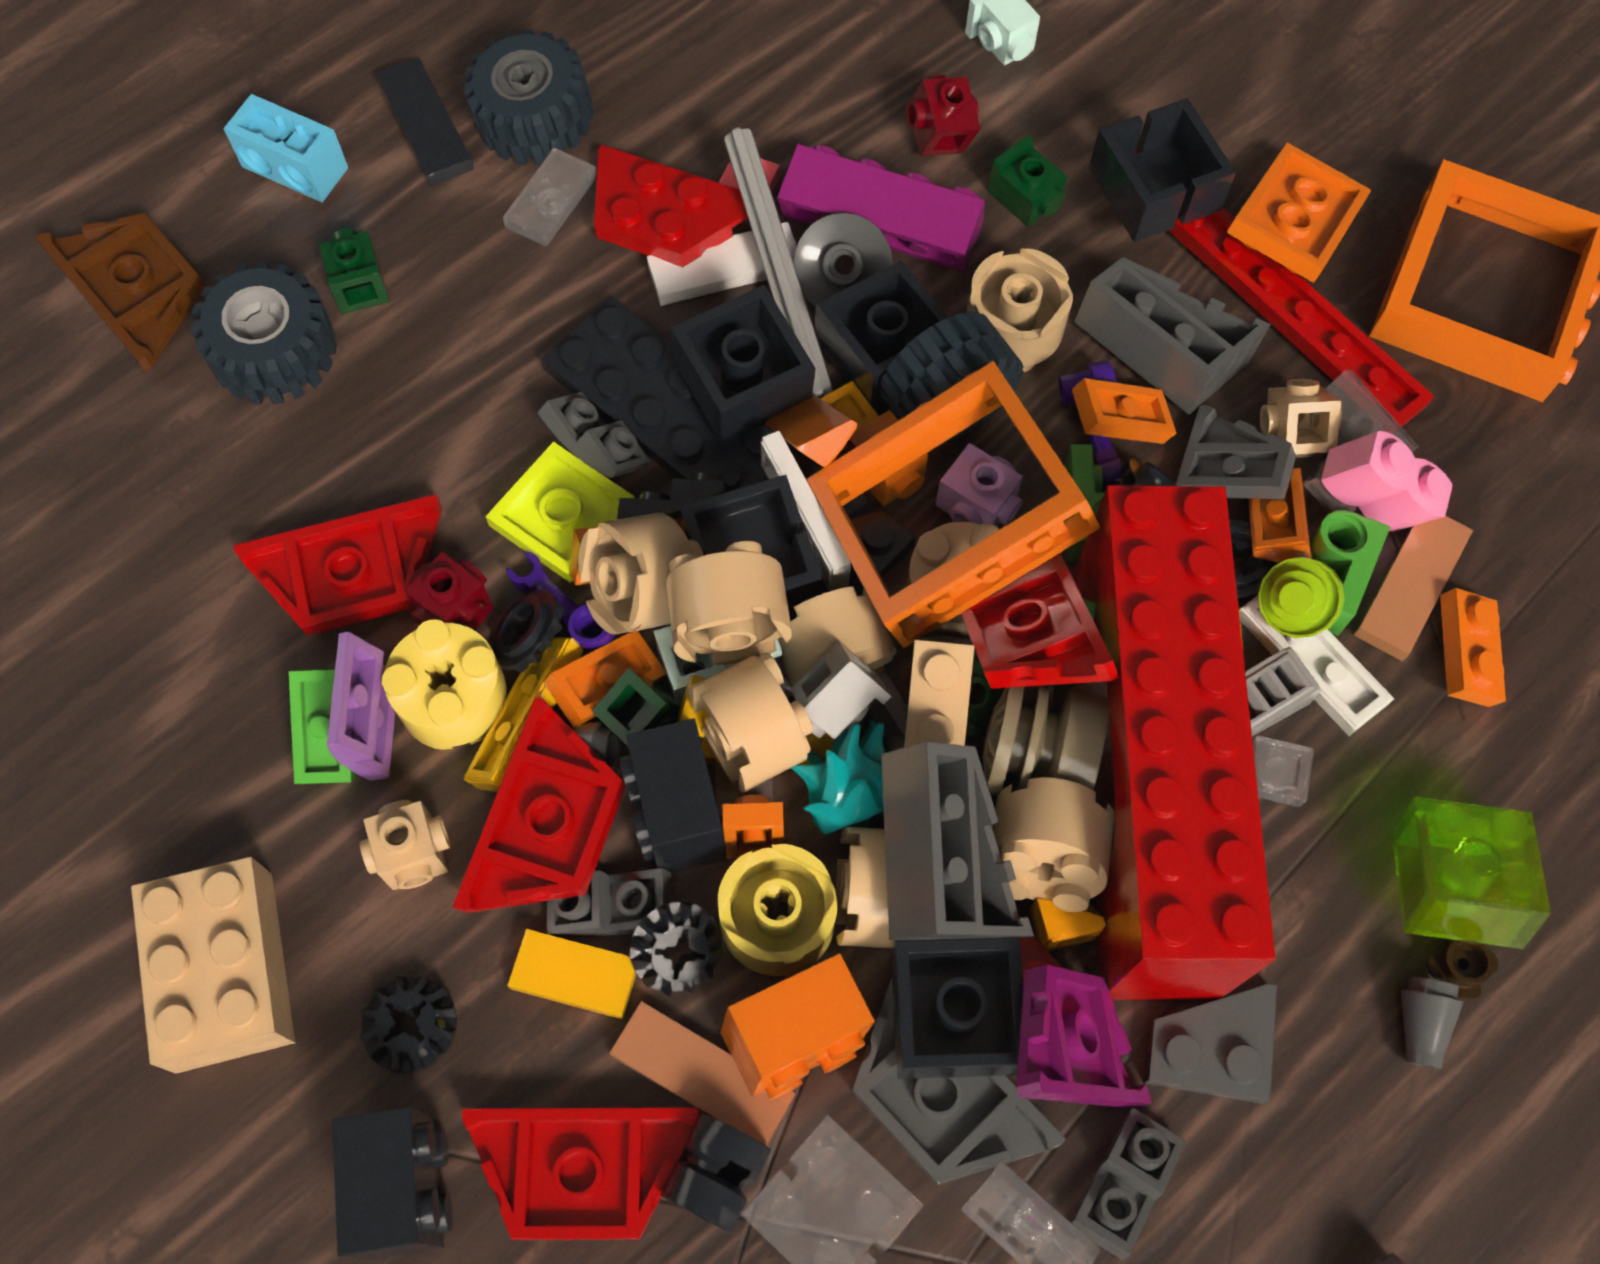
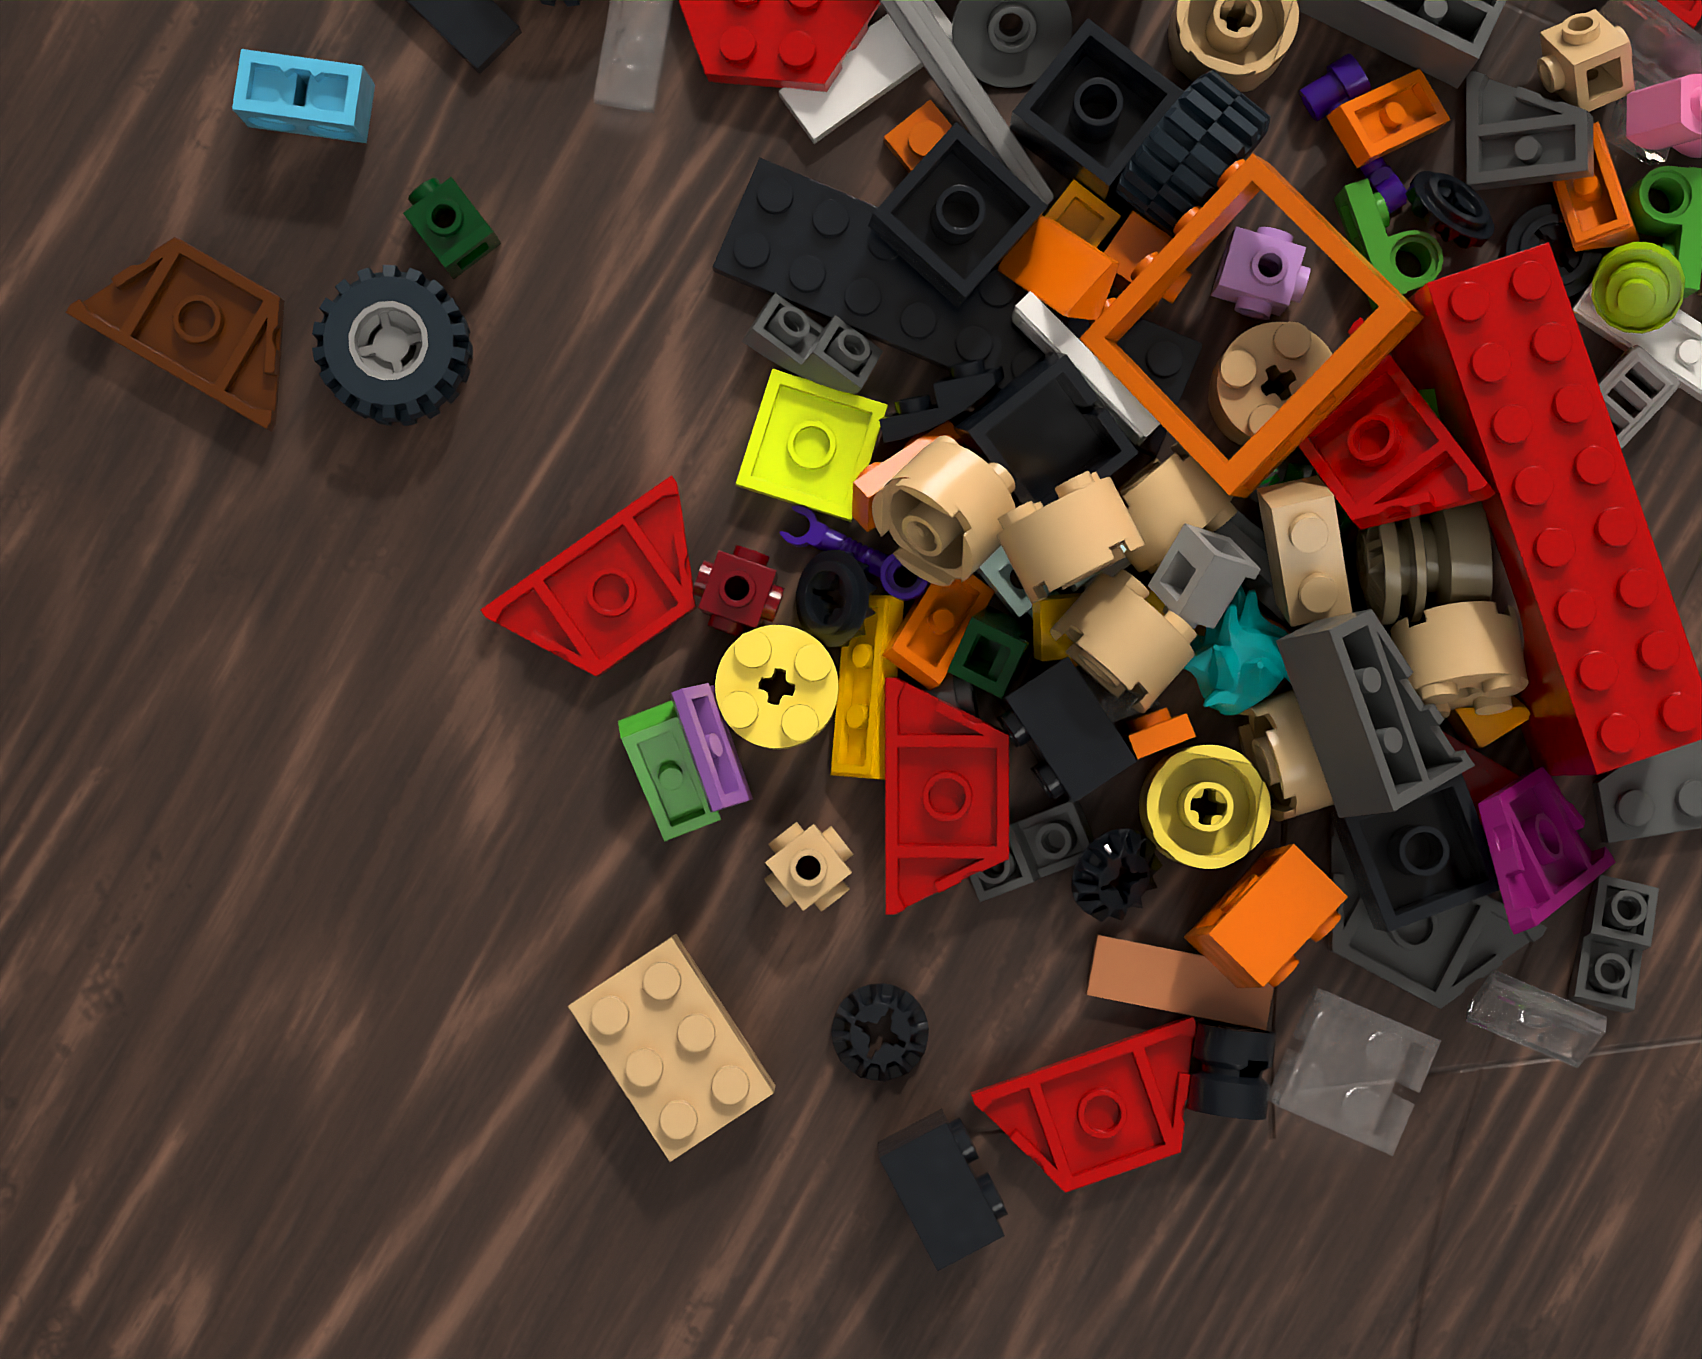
camera: 20 degrees left, 20 degrees up
(573, 974) = (1020, 930): yellow tile -> none
(1282, 770) = (1662, 481): clear plate -> none

